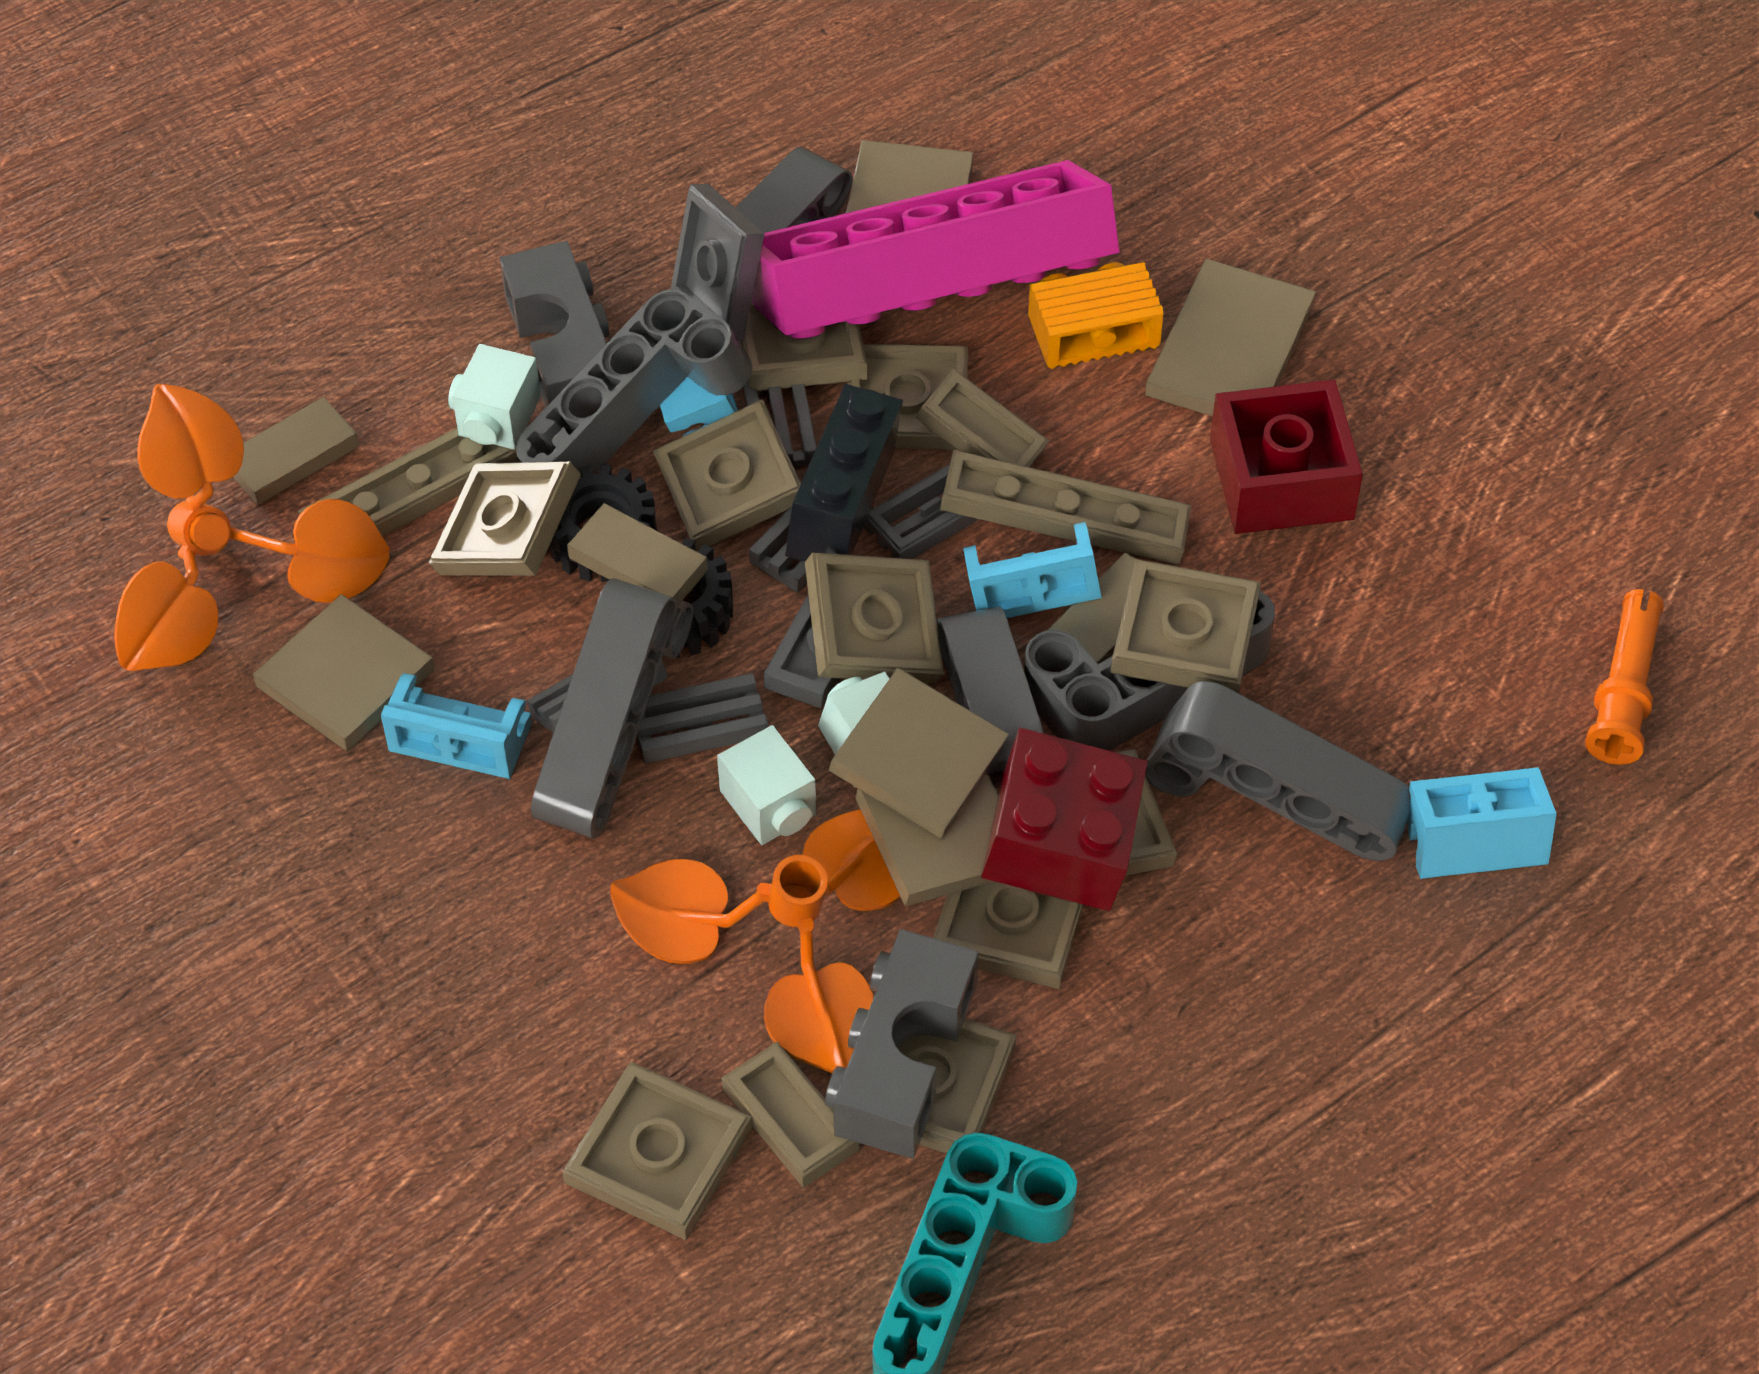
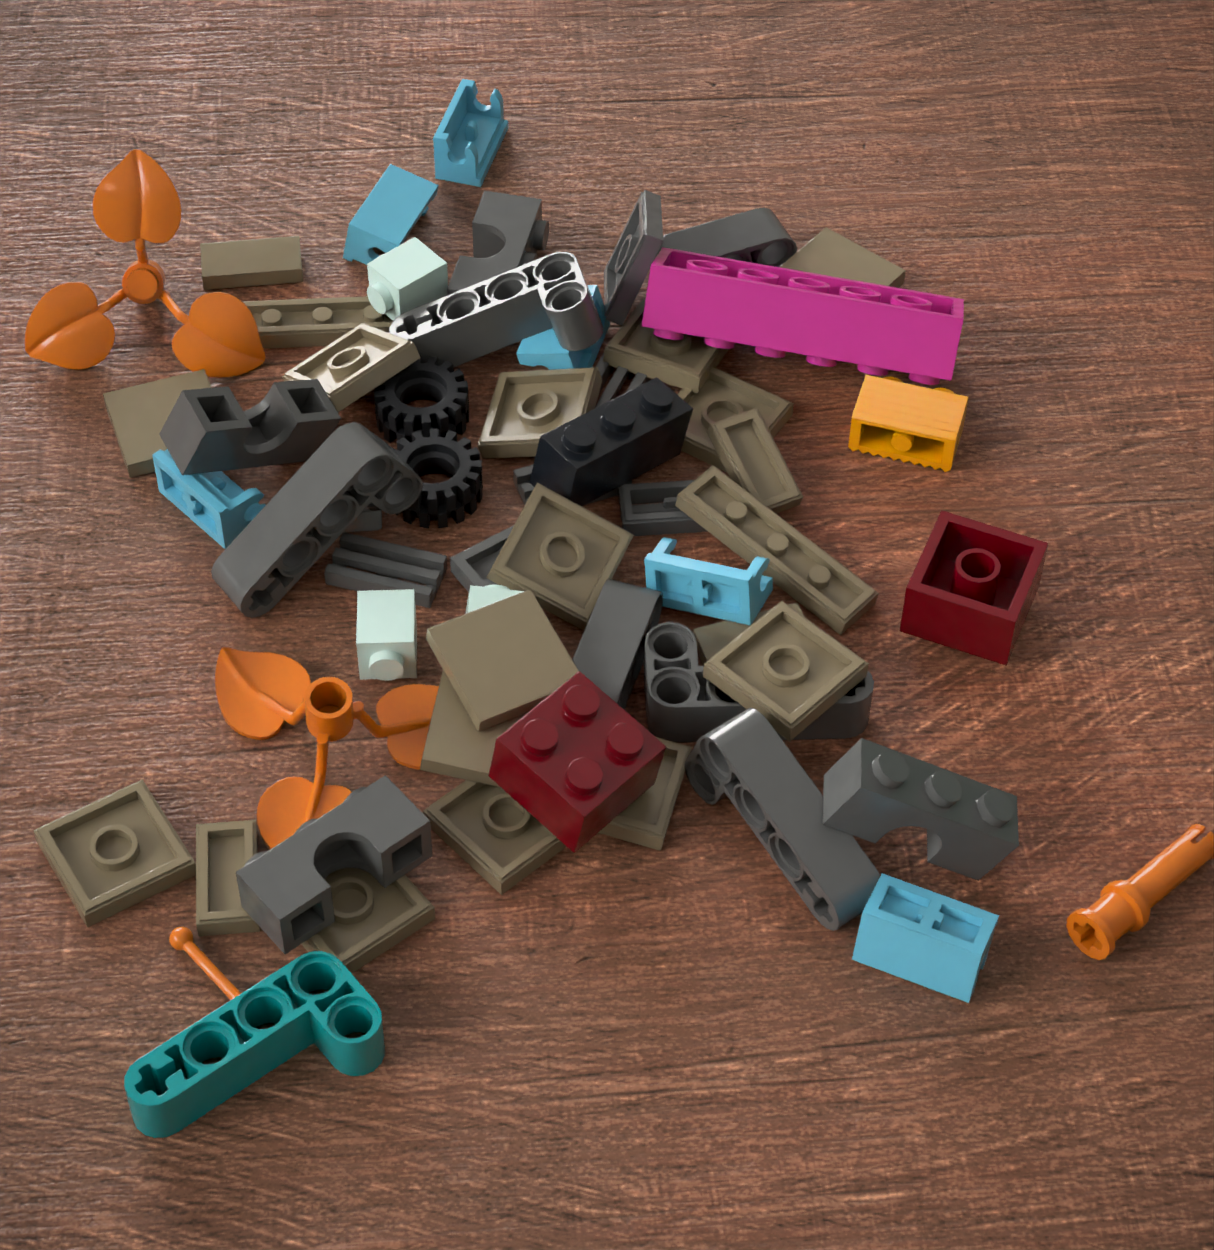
camera: 30 degrees right, 5 degrees down
(409, 332) = (388, 214): none -> medium azure hinge
(420, 202) = (469, 136): none -> medium azure hinge
(457, 649) = (214, 434): none -> dark grey arch
(636, 554) = (416, 431): dark tan tile -> none
(795, 1200) = (182, 939): none -> orange hinge
(1229, 337) = (1012, 484): dark tan tile -> none
(1373, 699) = (883, 790): none -> dark grey arch

